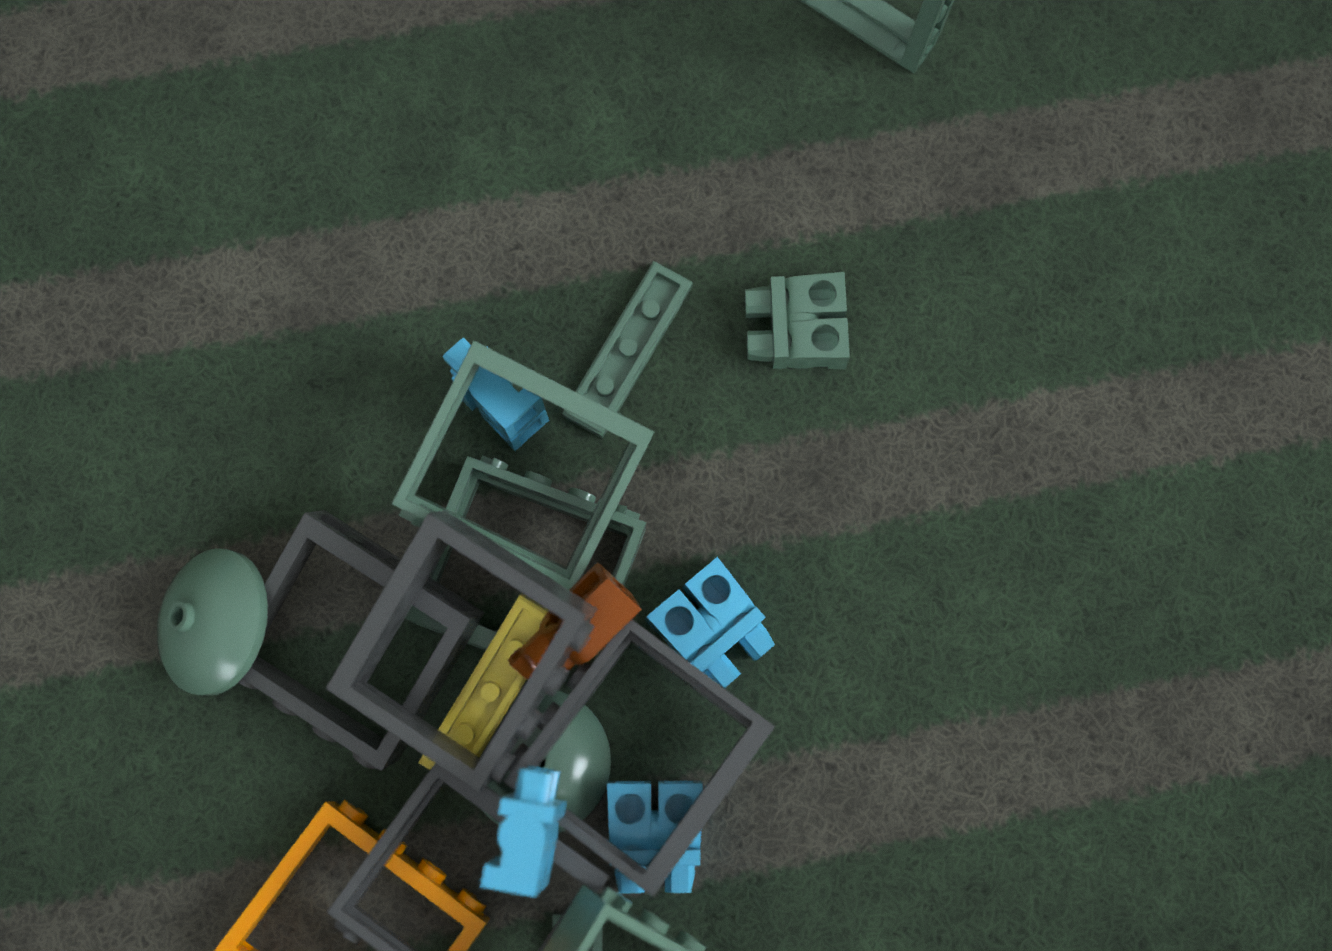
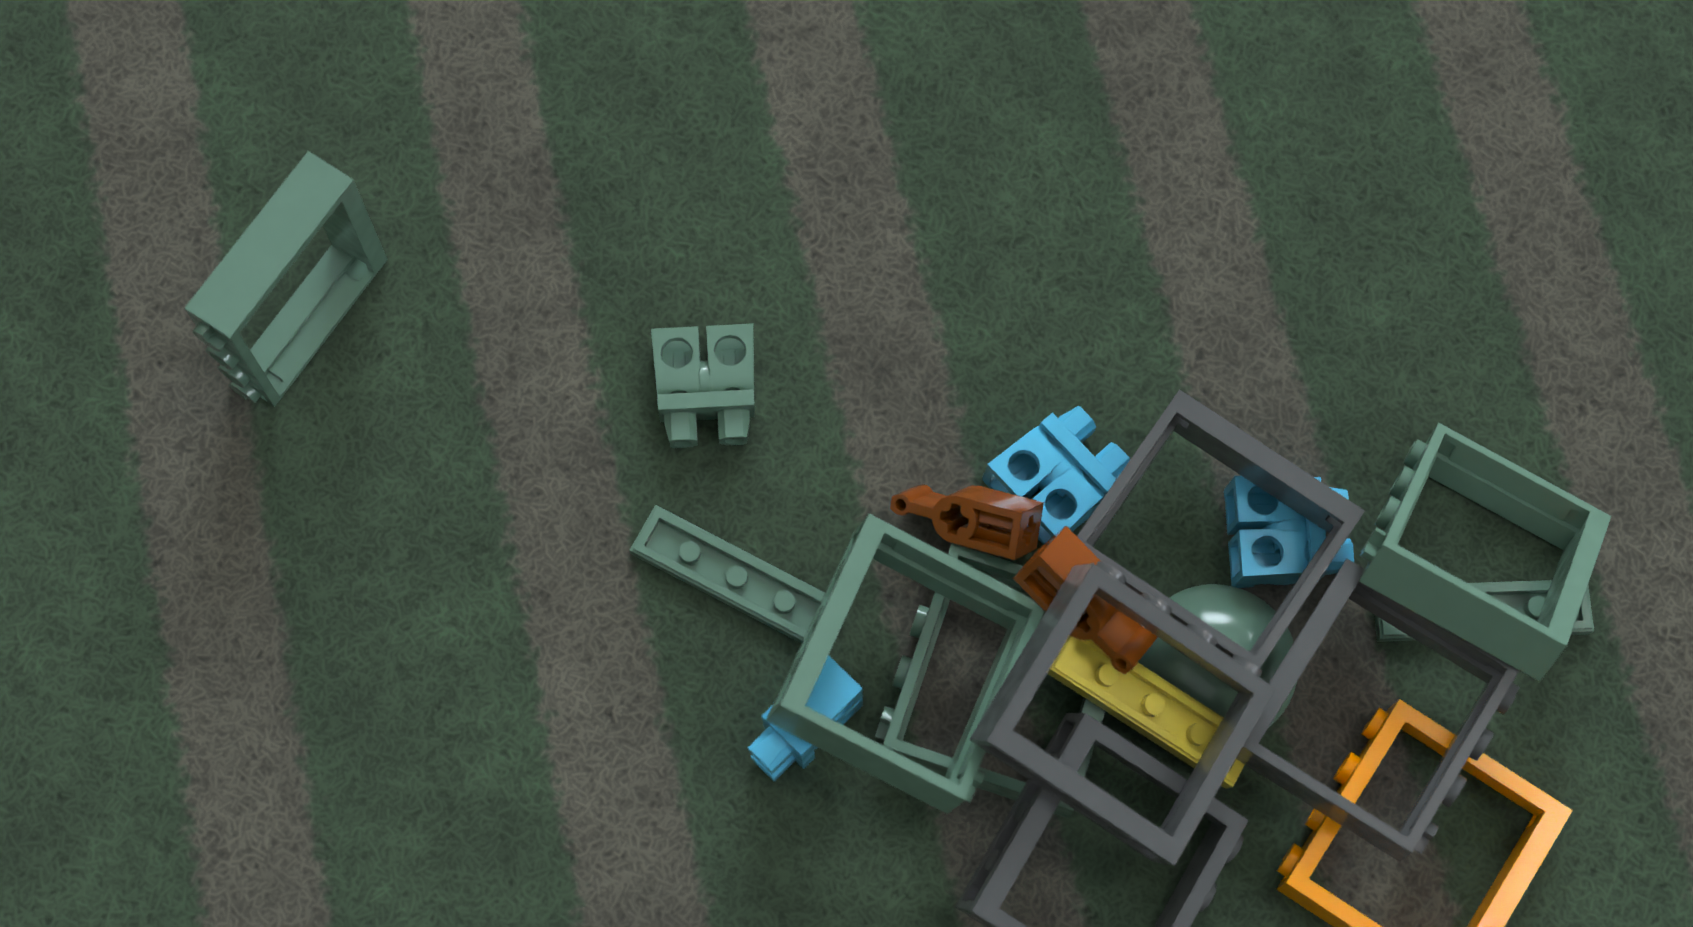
camera: 90 degrees left, 5 degrees down
(527, 834) = (1329, 625): medium azure hips -> none
(668, 544) = (977, 518): none -> dark orange piece

